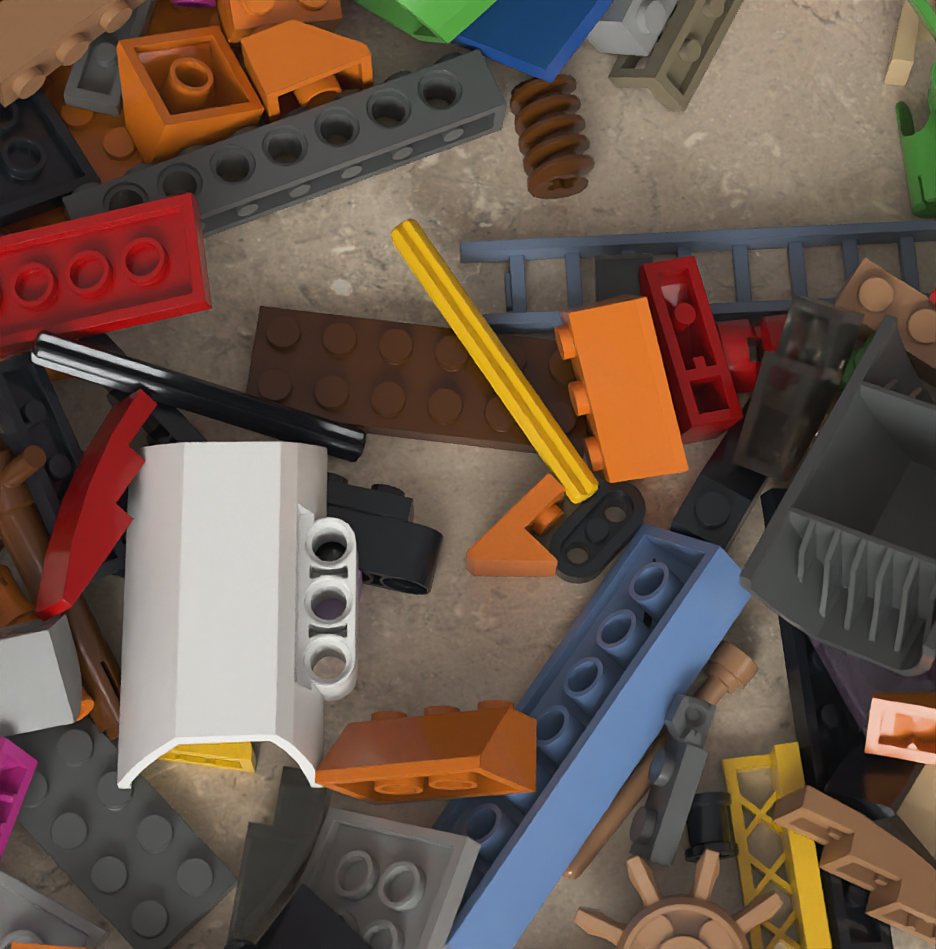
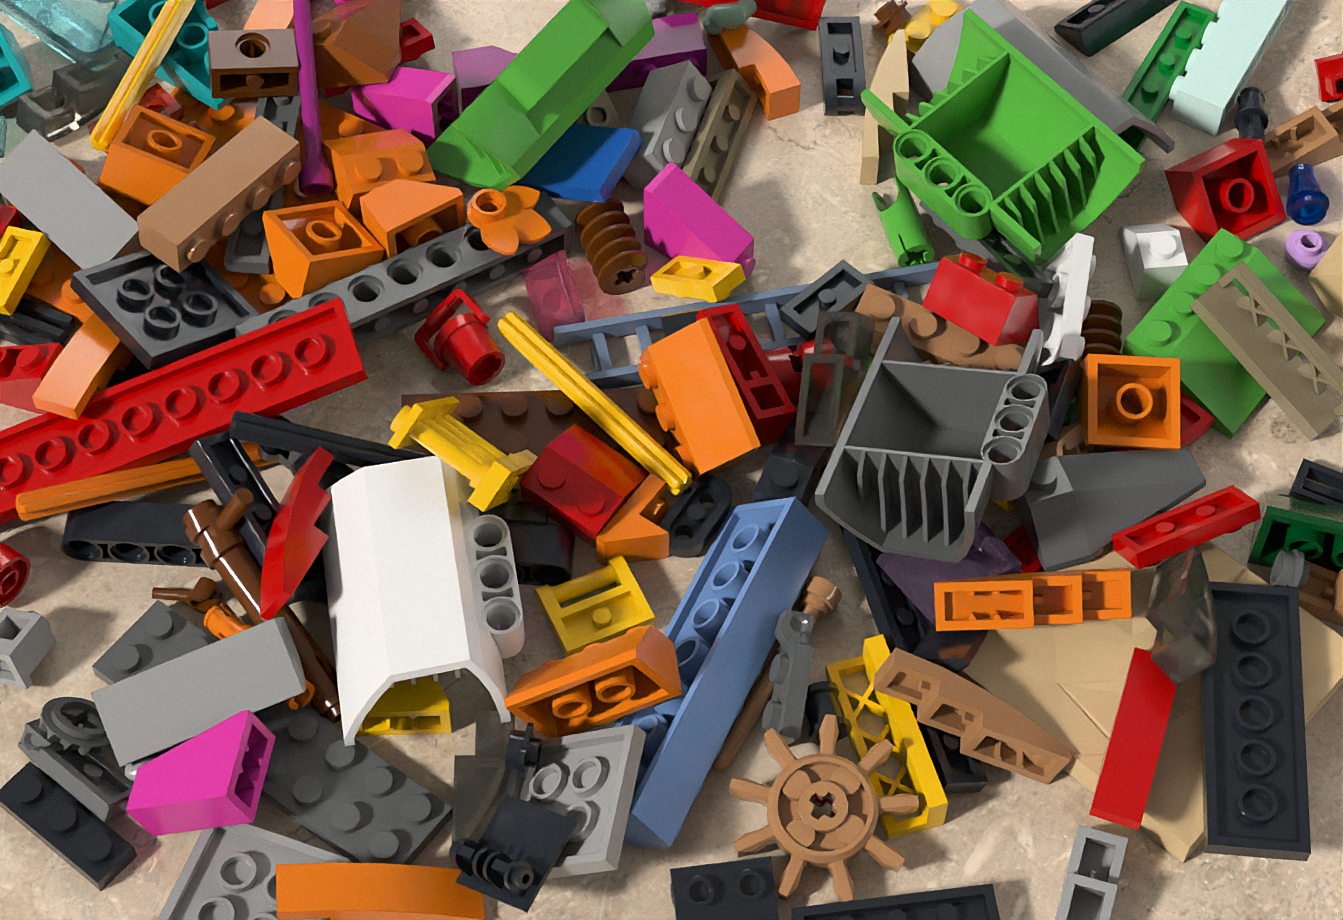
camera: 10 degrees left, 15 degrees down
(317, 430) = (490, 470): none -> yellow fence
(331, 831) = (523, 750): none -> black plate
(346, 248) = (461, 341): none -> red piece
(431, 94) = (507, 218): none -> orange plate
(457, 653) = (599, 616): none -> yellow plate
(465, 469) = (581, 482): none -> red slope
(468, 193) = (553, 294): none -> clear pink slope
(653, 200) = (698, 278): none -> yellow plate
(662, 133) = (691, 224): none -> dark pink slope
(811, 259) = (833, 292): none -> black plate

